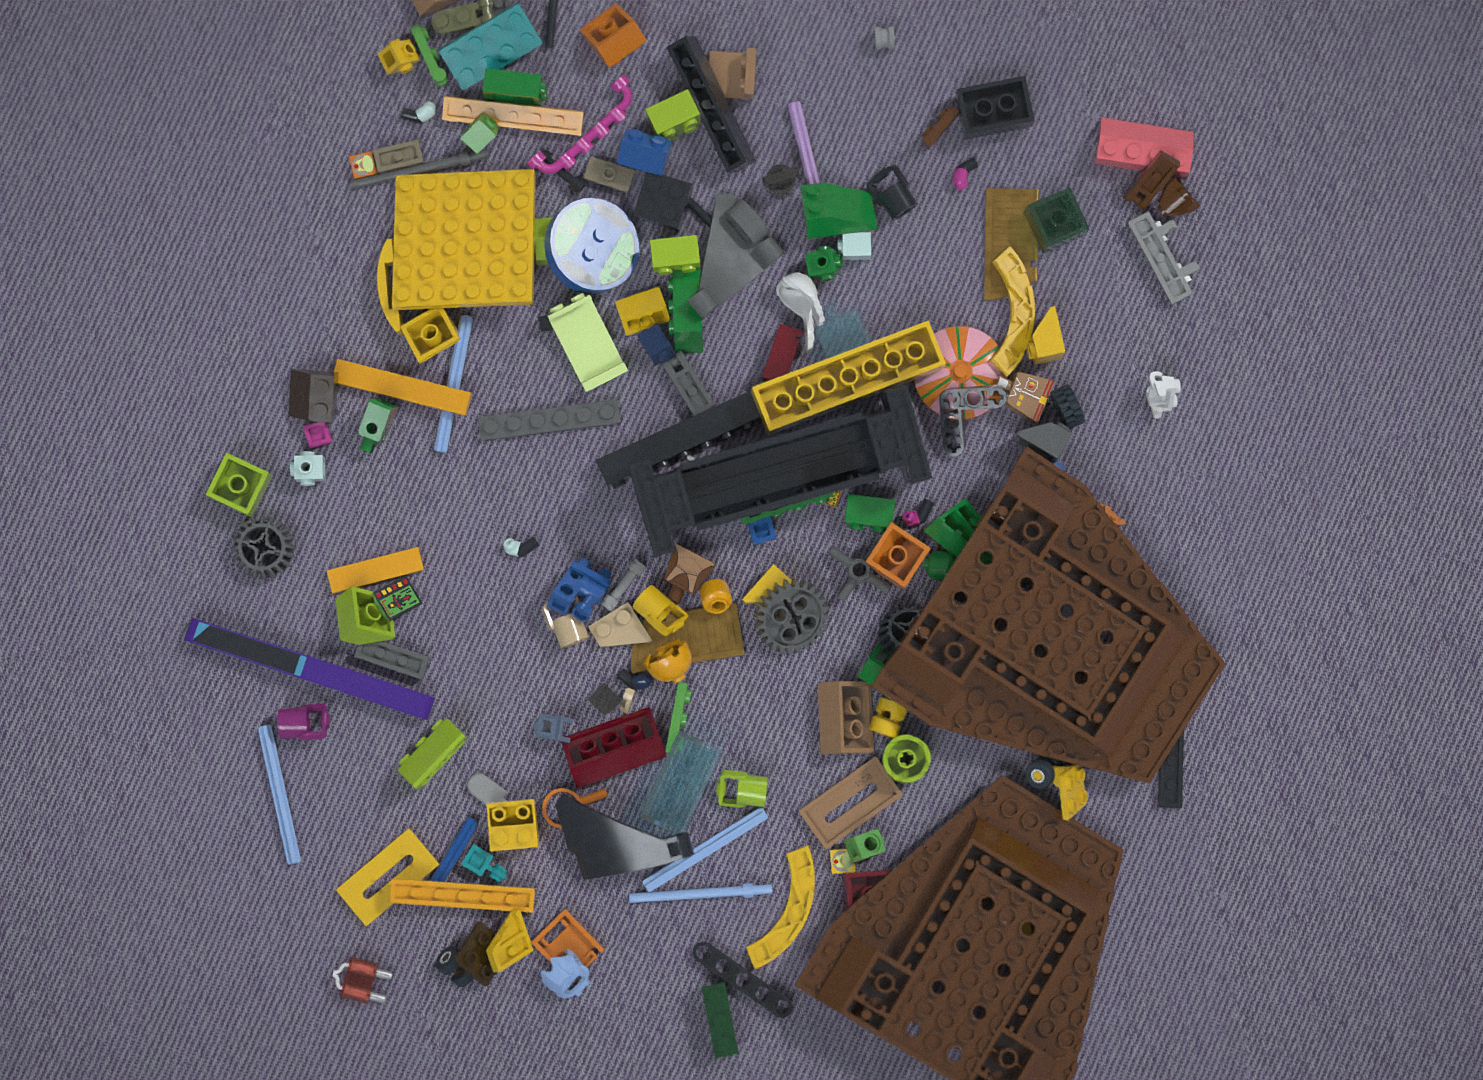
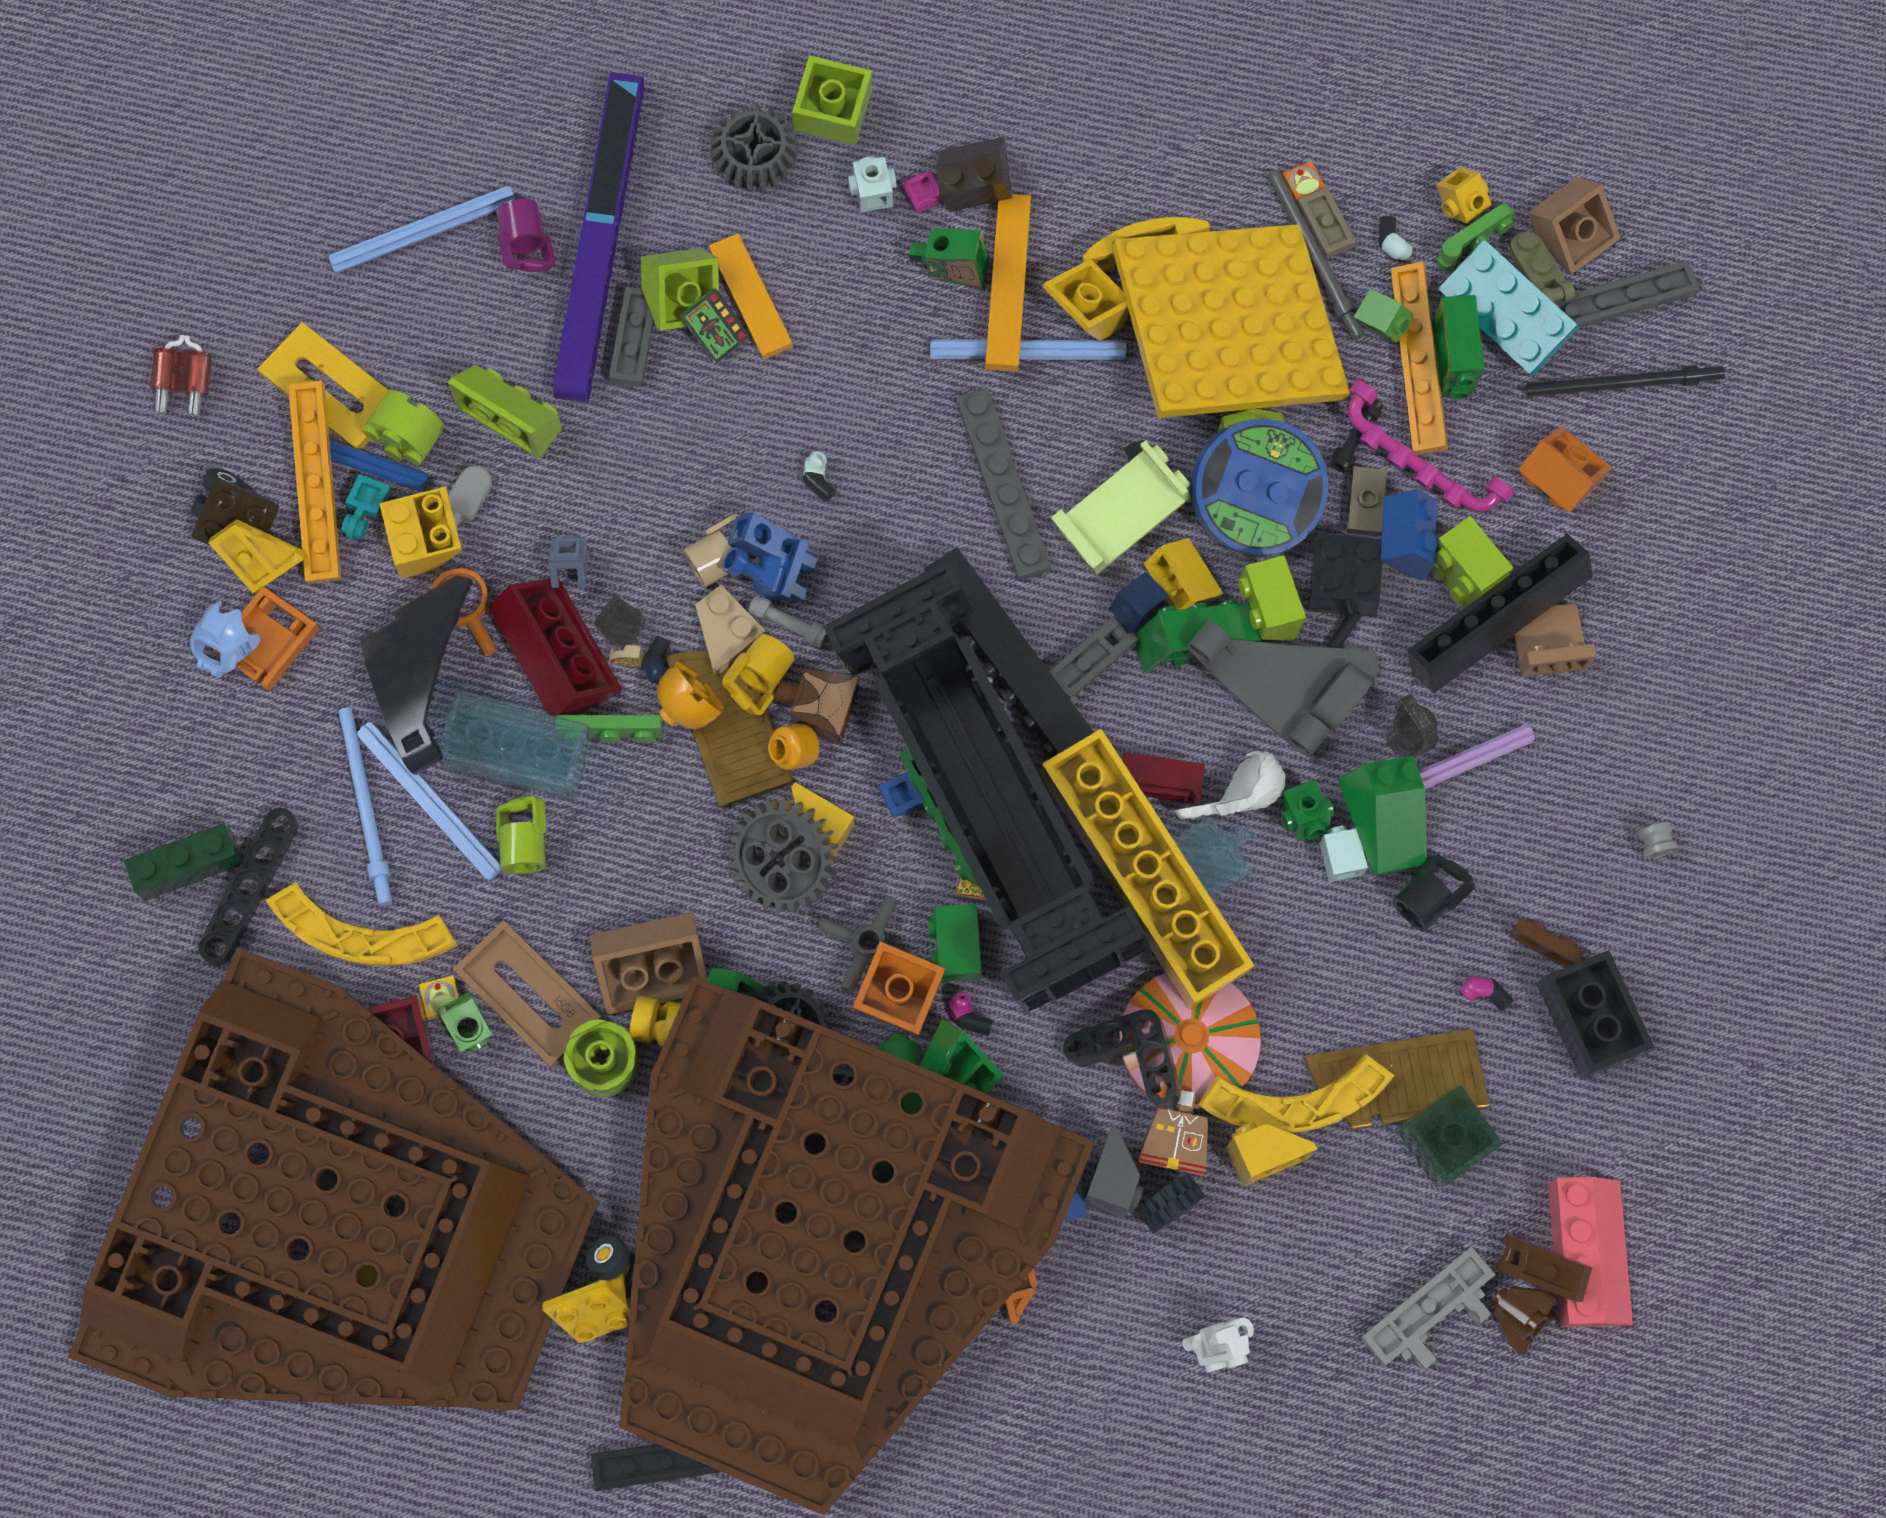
camera: 75 degrees right, 10 degrees down
(435, 827) = (403, 427): none -> lime brick

